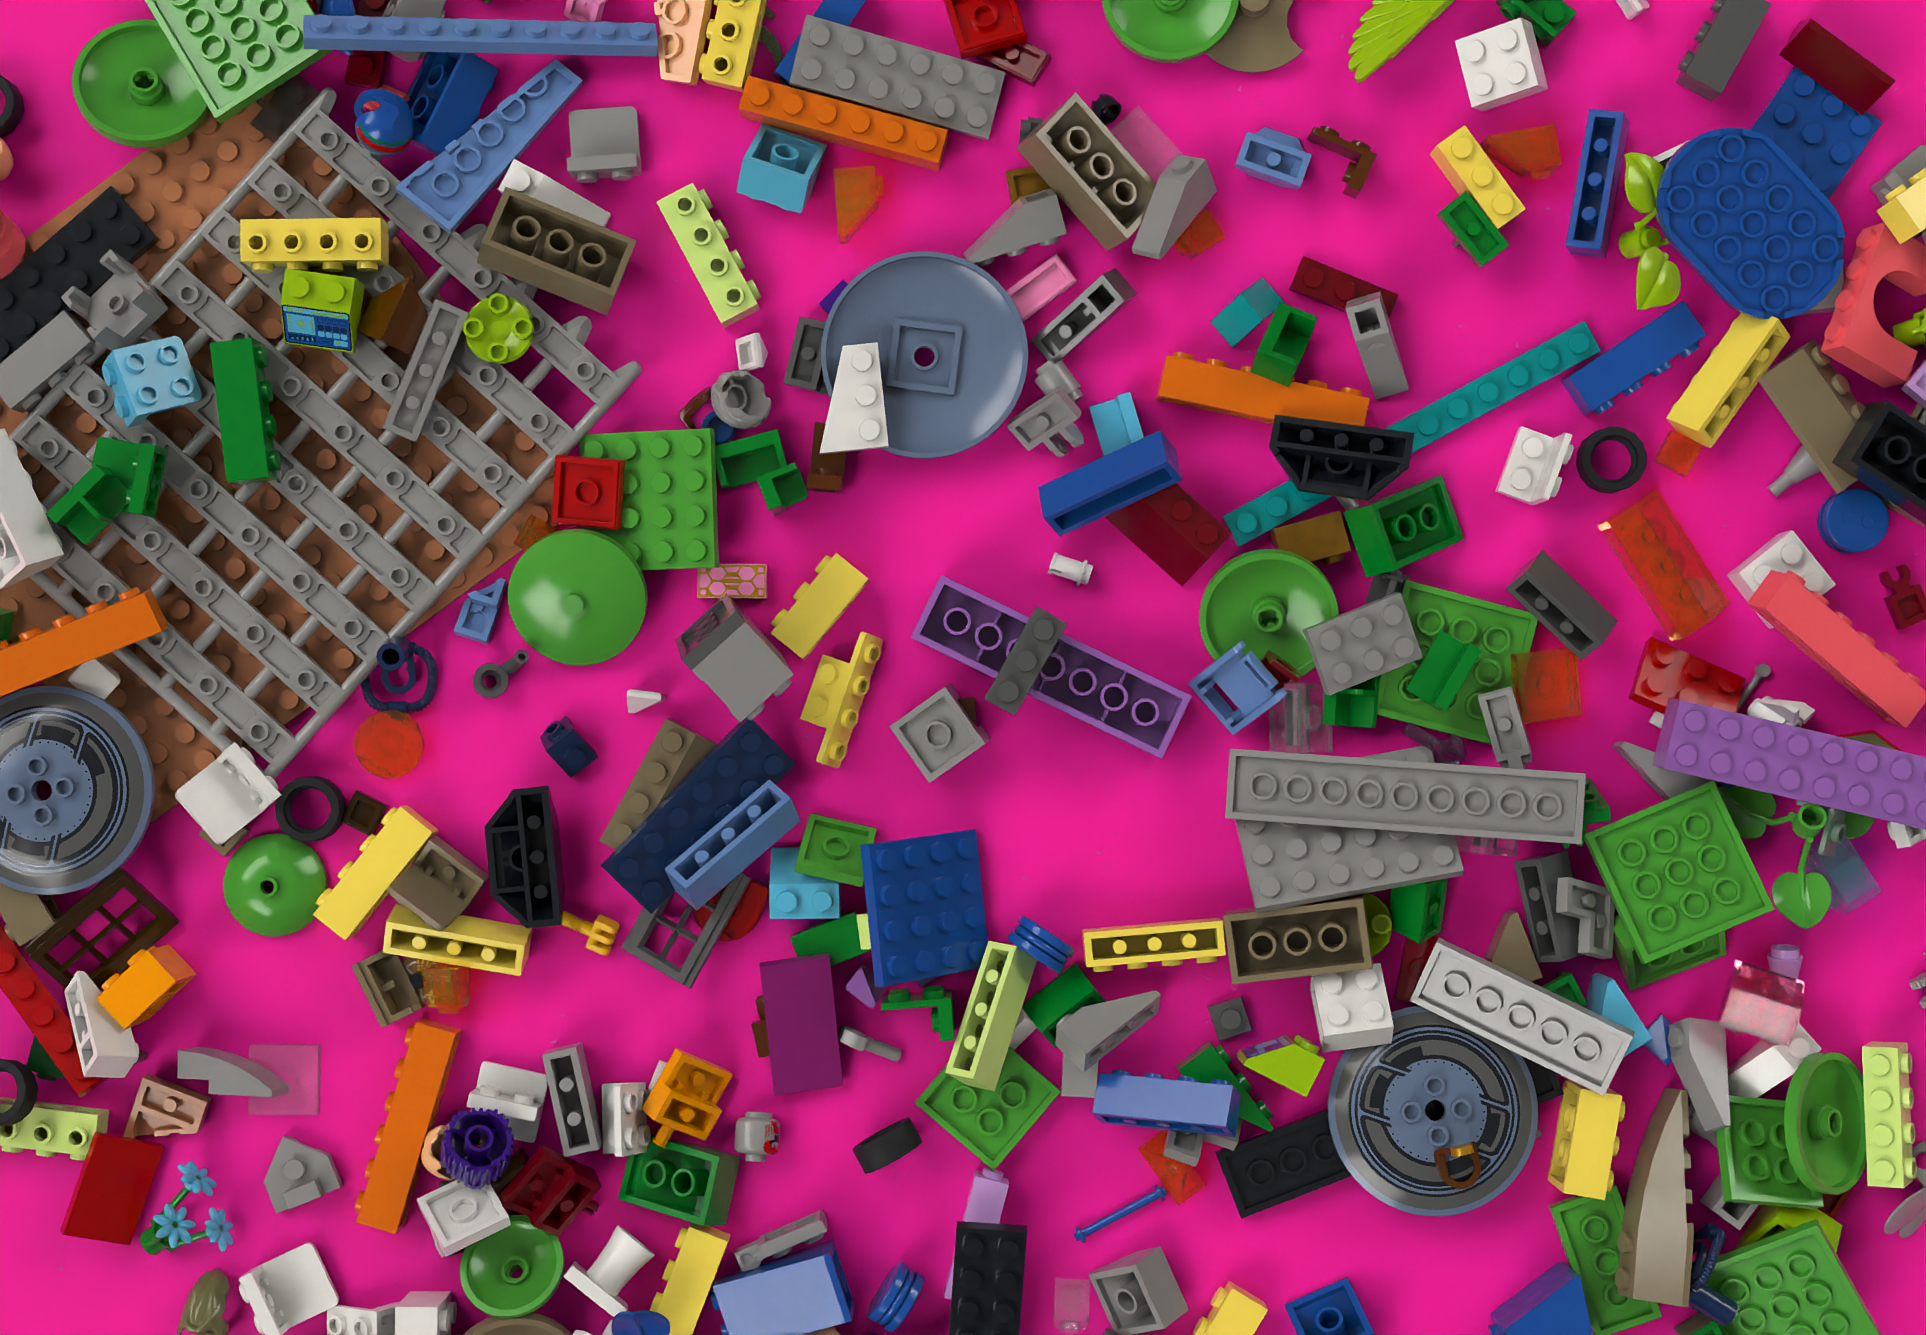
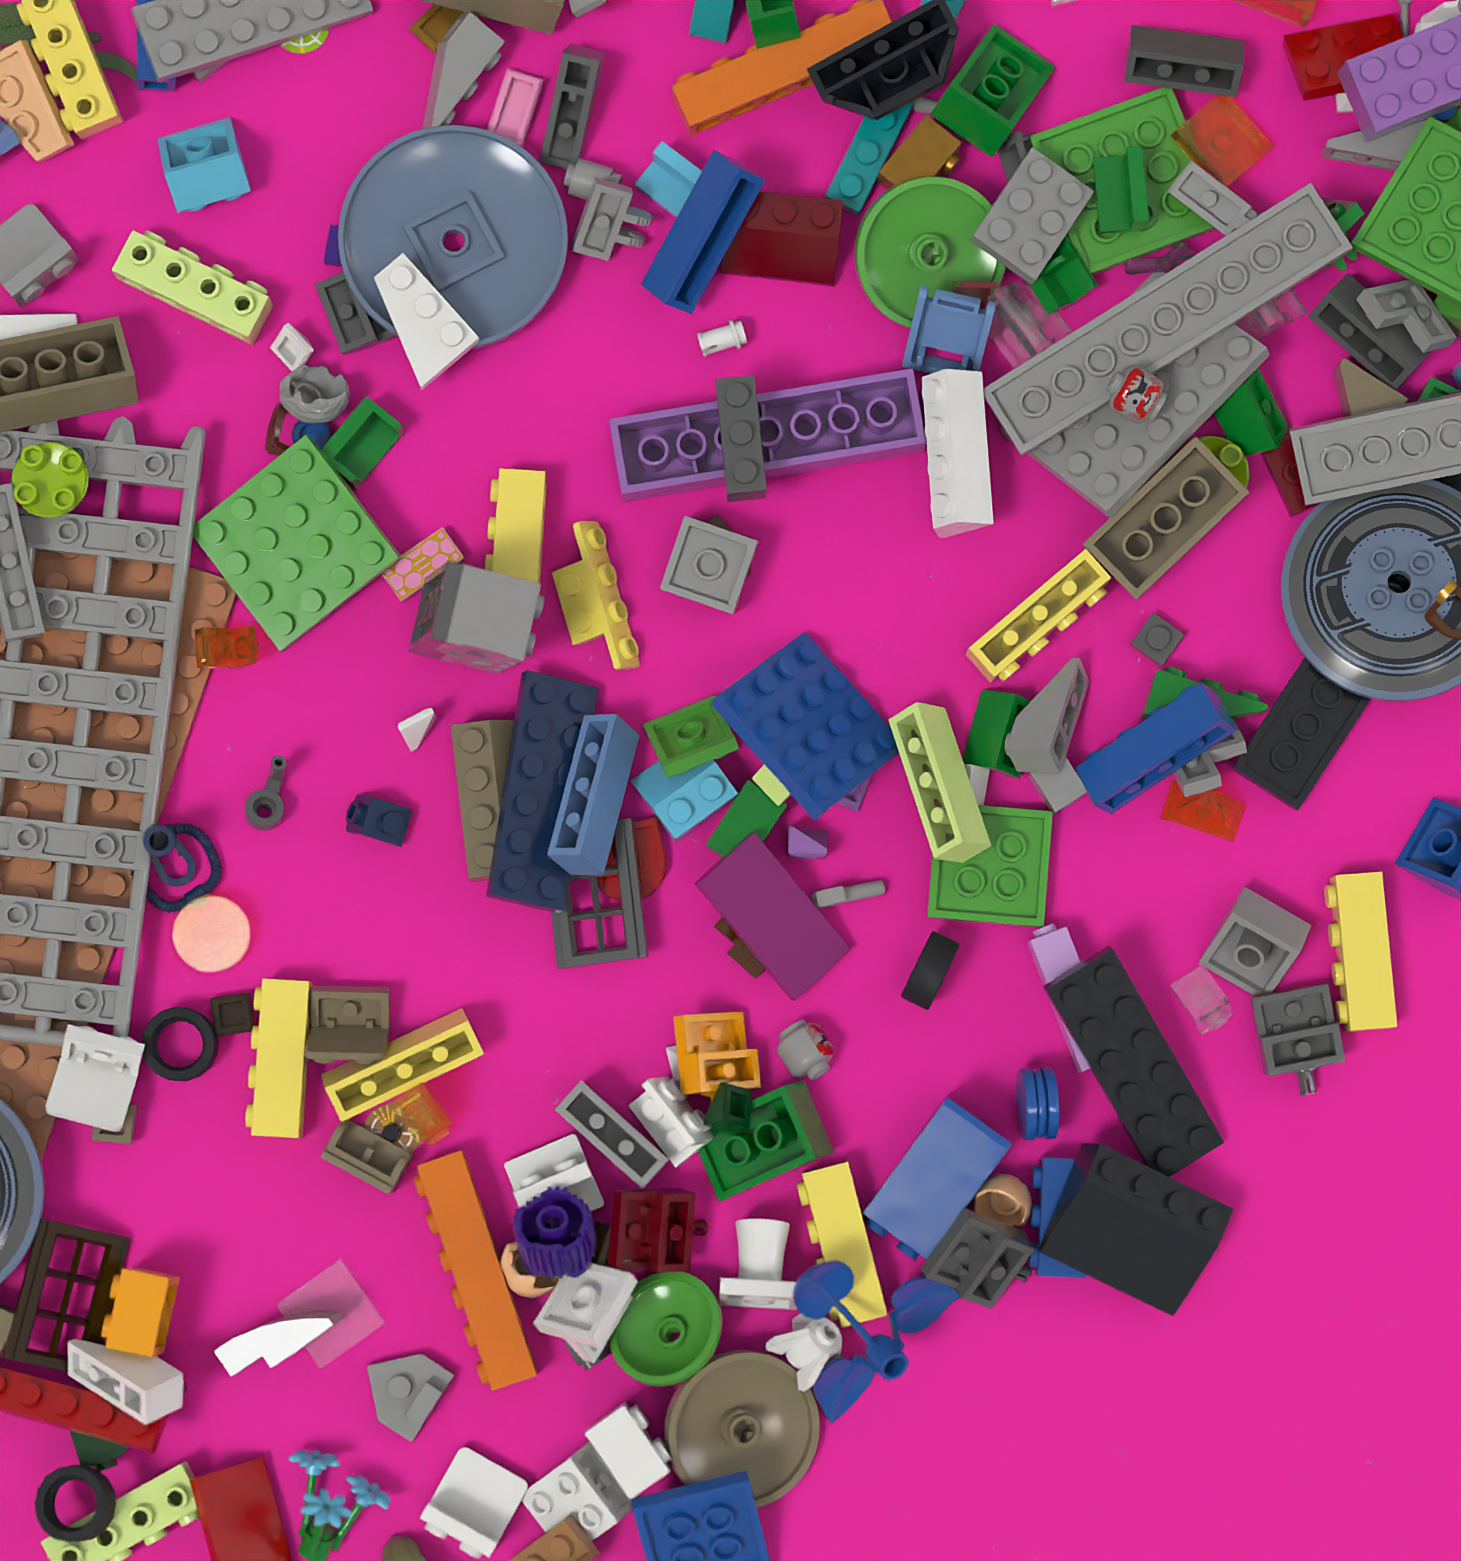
camera: 40 degrees left, 5 degrees down
(166, 1109) = (240, 1418): nougat wing -> none
(296, 878) = (222, 1147): bright green dish -> none
(480, 612) = (210, 755): medium blue slope -> none
(526, 857) = (410, 943): black wedge -> none
(577, 597) = (291, 675): bright green dish -> none
(588, 492) = (233, 572): red tile -> none
(600, 934) = (524, 970): yellow hinge -> none
(669, 1144) = (729, 1108): none -> dark green slope
(780, 1240) = (895, 1132): light grey hinge -> none
(782, 488) = (408, 445): green panel -> none
(826, 470) = (435, 402): reddish brown bracket -> none
(843, 123) = (232, 85): orange brick -> none
(856, 198) = (290, 143): slope -> none
(935, 995) = (896, 817): green bracket -> none
(1041, 944) = (939, 687): blue head -> none
(1158, 1193) = (1165, 929): blue axle -> none
(1180, 781) = (957, 451): none -> white slope
(1285, 1061) = (1236, 638): lime slope -> none
(1340, 837) = (1136, 394): none -> head
(1351, 1009) = (1258, 545): white piece -> none

